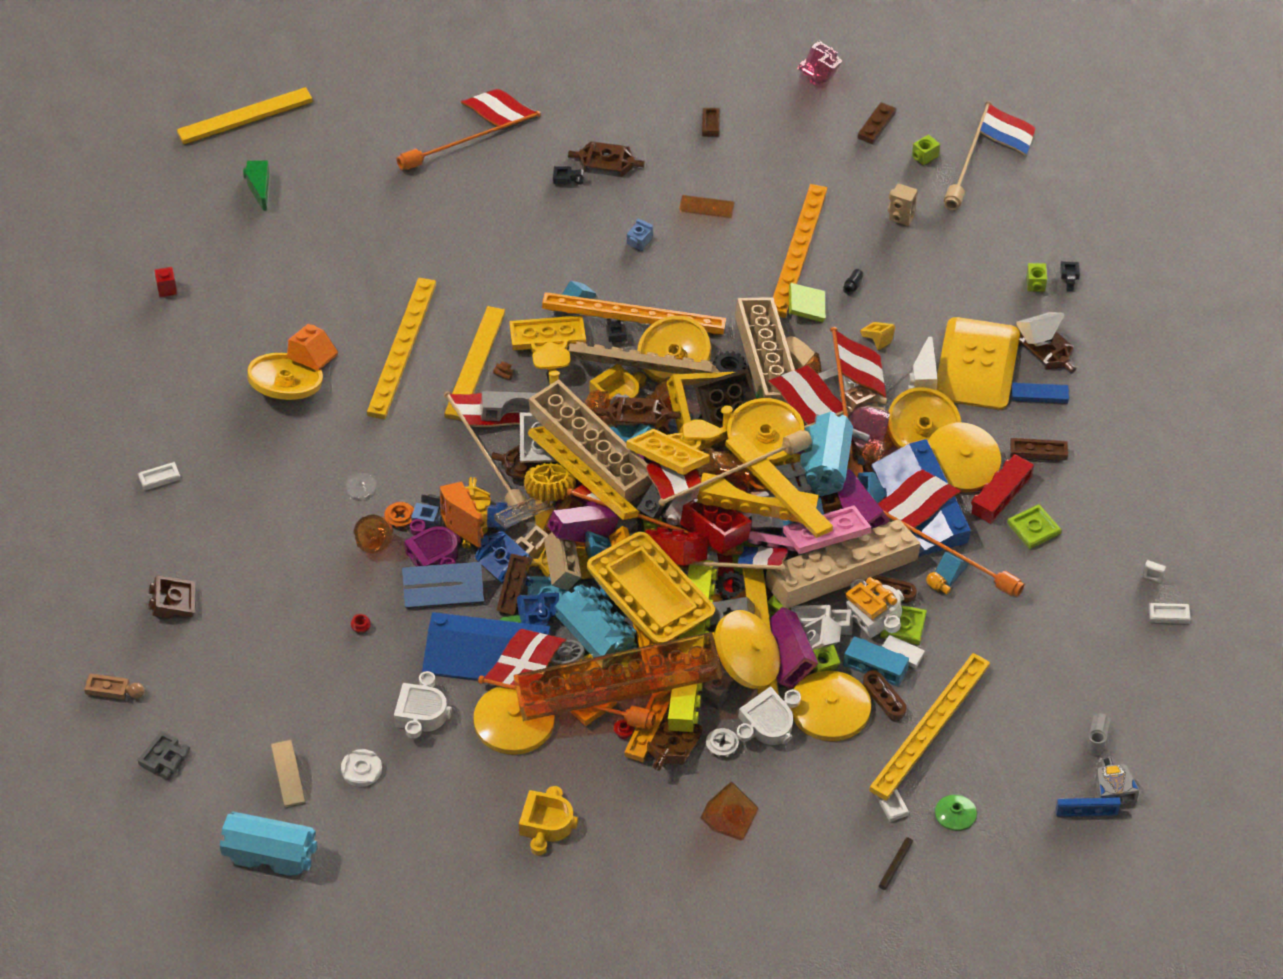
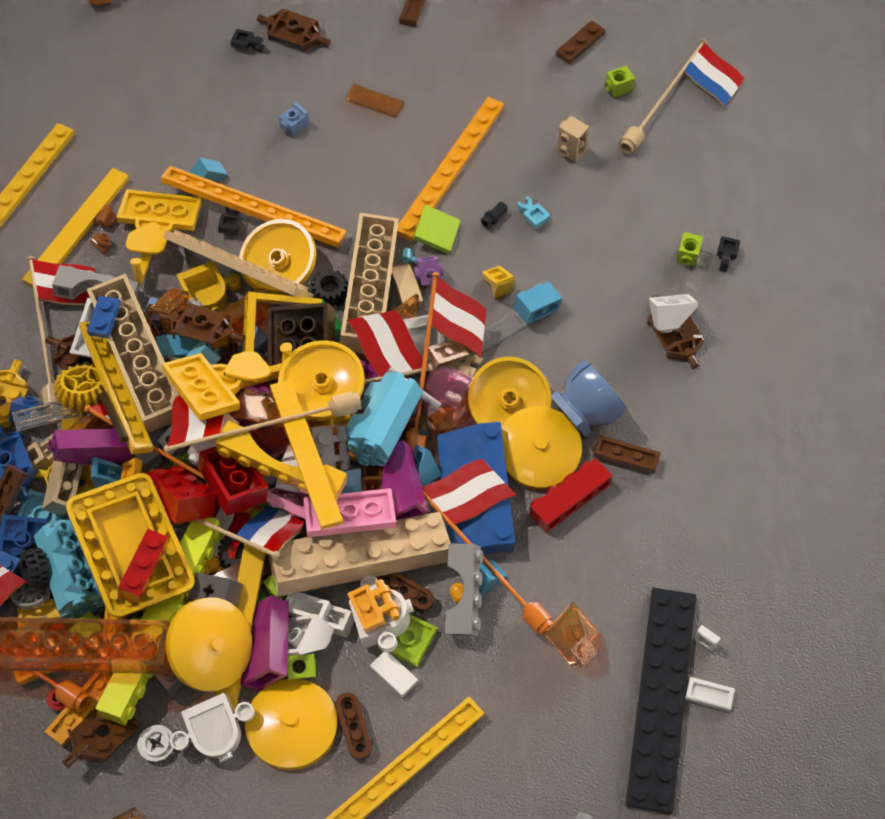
camera: 15 degrees right, 10 degrees up
(499, 348) = (106, 217): none -> dark orange plate
(555, 416) = (103, 317): none -> blue plate
(569, 627) = (34, 568): none -> black tyre
(595, 494) = (113, 417): none -> dark brown bar
(672, 599) = (142, 566): none -> red brick
(789, 331) = (407, 256): none -> medium azure hand
(814, 336) = (425, 265): none -> medium lavender brick
(870, 657) = (359, 680): dark azure brick -> none
(889, 274) = (533, 214): none -> medium azure plate
(913, 343) = (537, 302): none -> dark azure brick
(924, 368) = (528, 335): white slope -> none
(946, 594) = (464, 618): none -> light grey arch
(978, 362) = (596, 326): yellow wedge -> none
(995, 407) = (589, 399): none -> medium blue plate
(1034, 526) = (592, 548): lime tile -> none
(1040, 393) = (650, 385): blue tile -> none
(1044, 591) = (575, 636): none -> clear orange slope
(1131, 625) = (661, 701): none -> black plate

